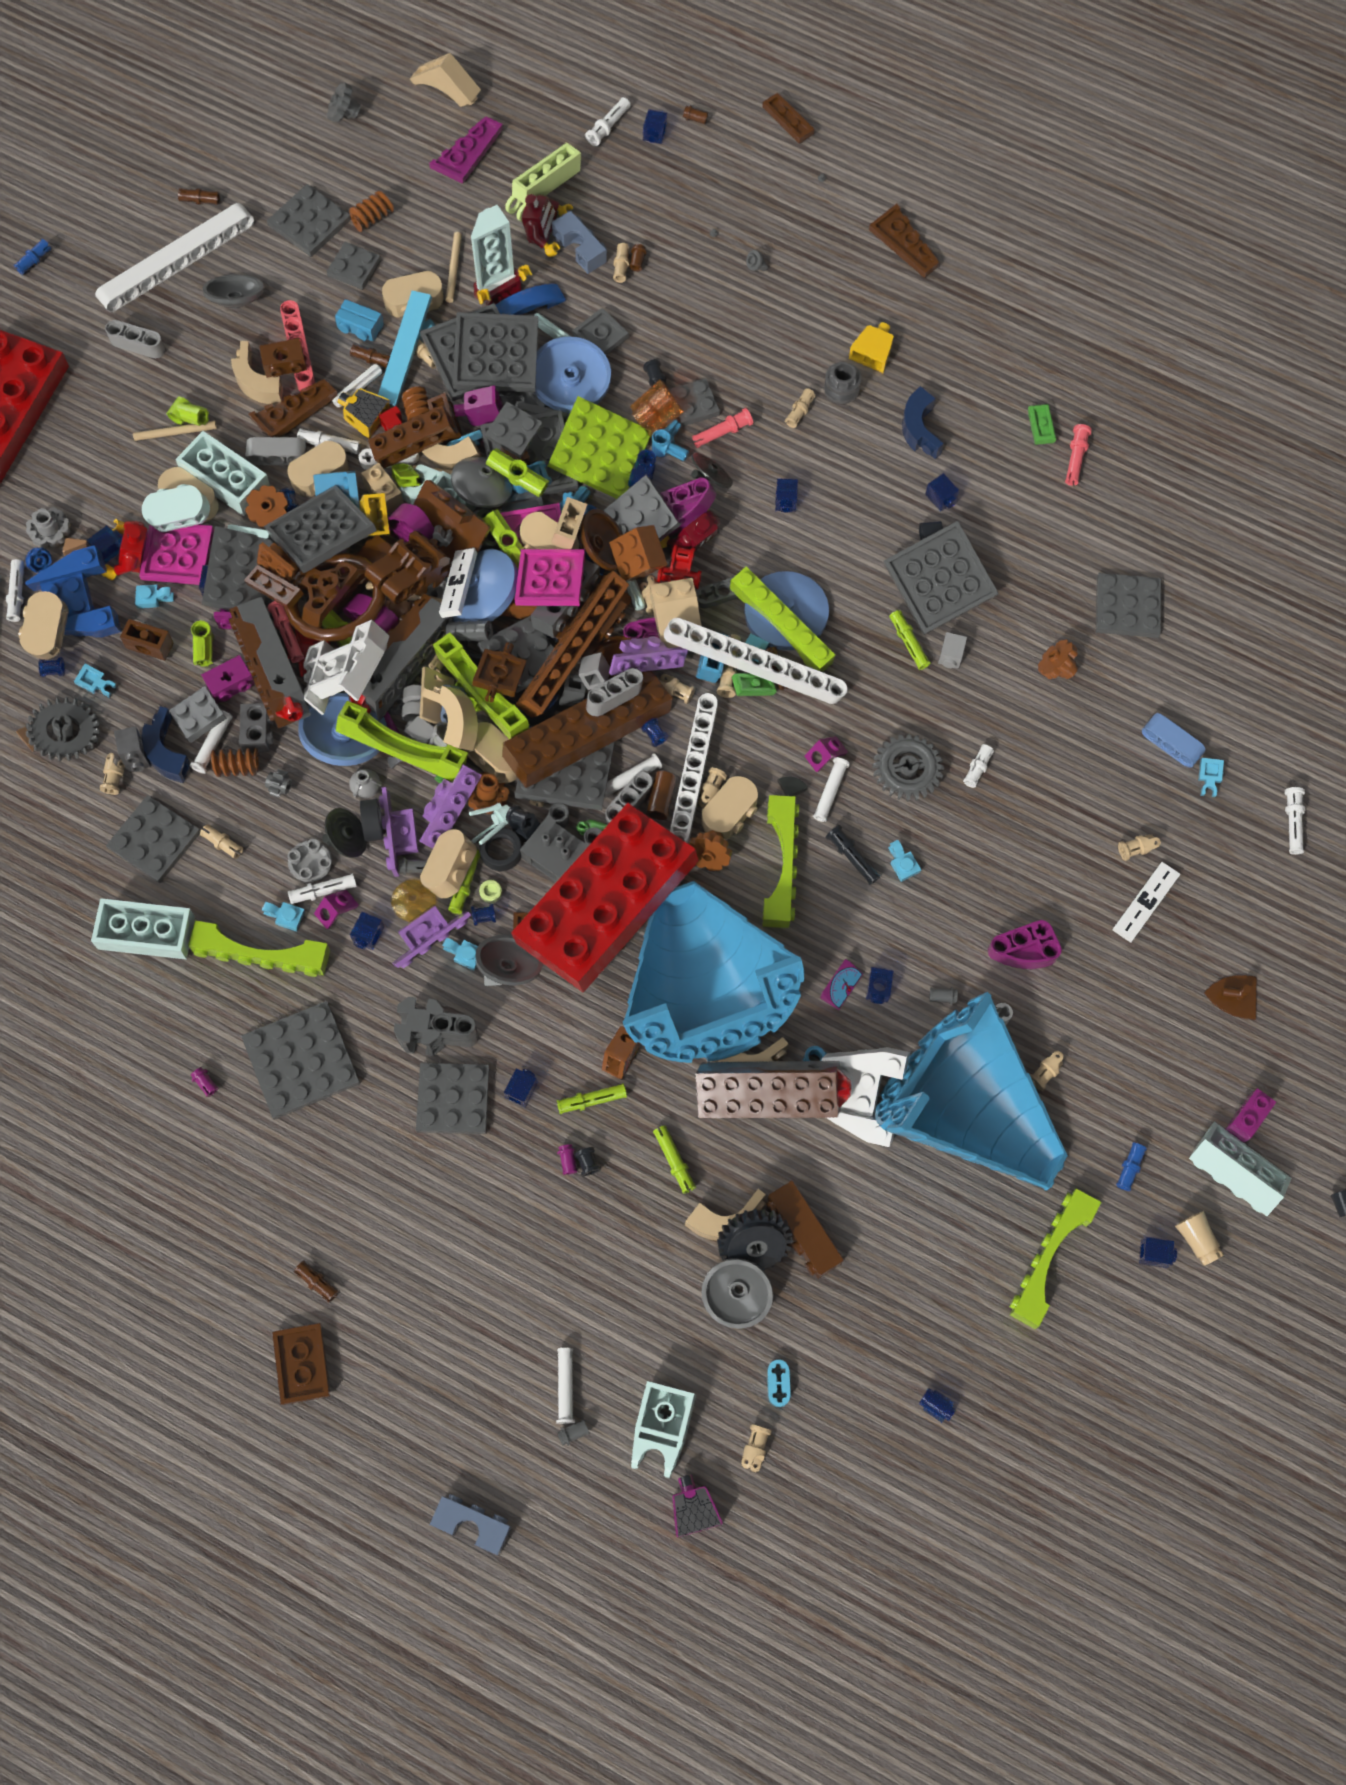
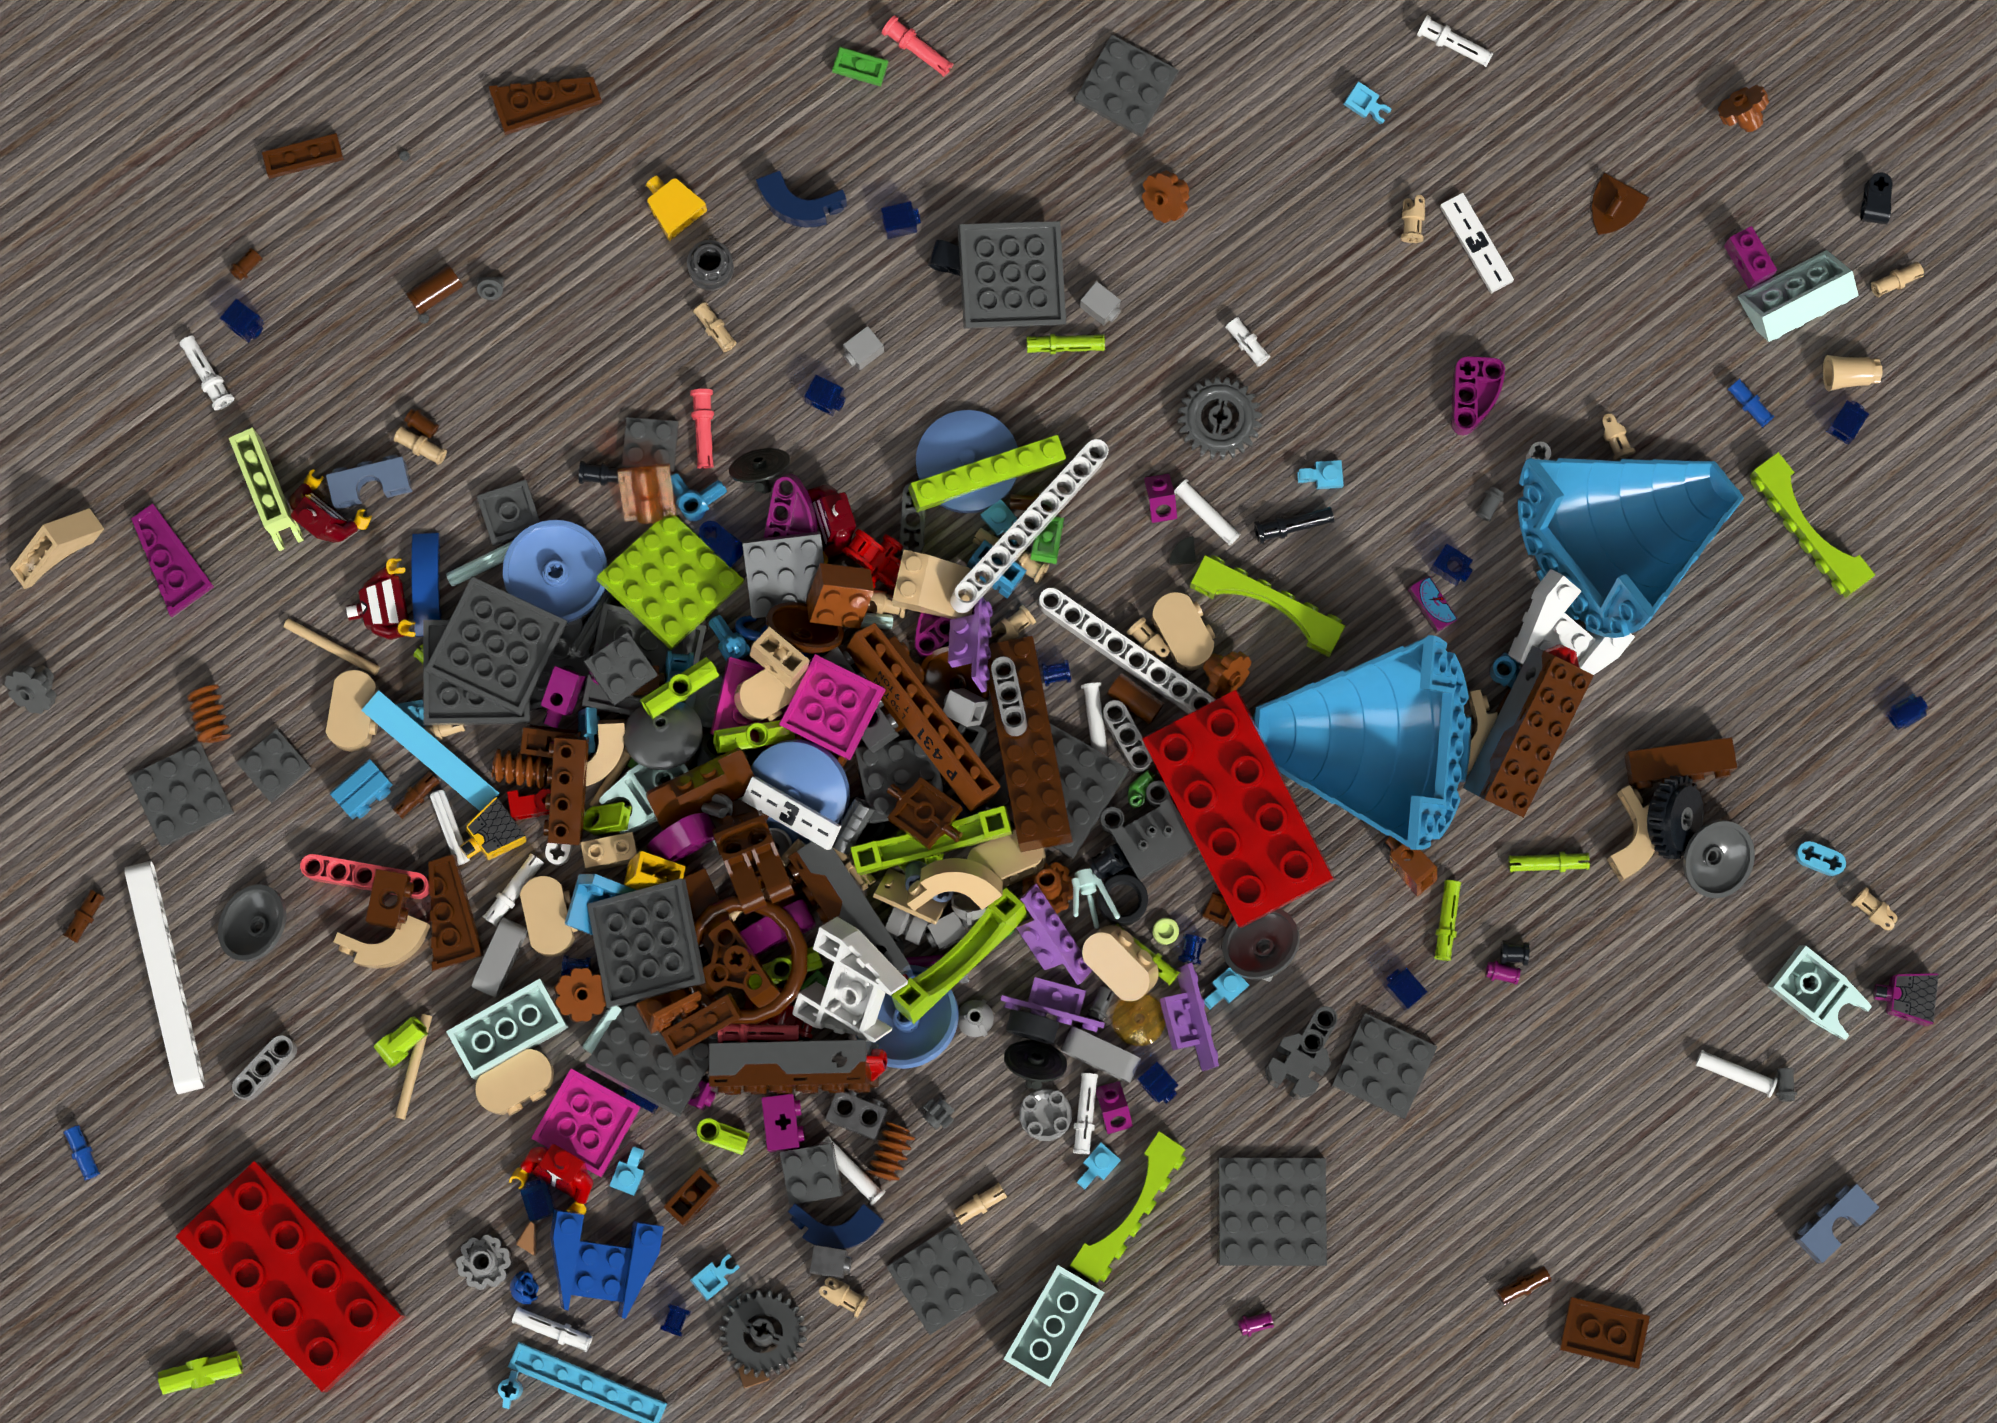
camera: 65 degrees left, 10 degrees up
(43, 625) = (632, 1307): tan brick -> none
(175, 508) = (539, 1100): light aqua brick -> none
(372, 881) = (1100, 1054): none -> light grey beam
(492, 247) = (366, 589): light aqua slope -> none
(735, 228) = (434, 290): none -> reddish brown pin
(834, 506) = (862, 349): none -> light grey brick
(1173, 740) = (1309, 121): medium blue beam -> none
(1298, 1245) = (1897, 279): none -> tan pin

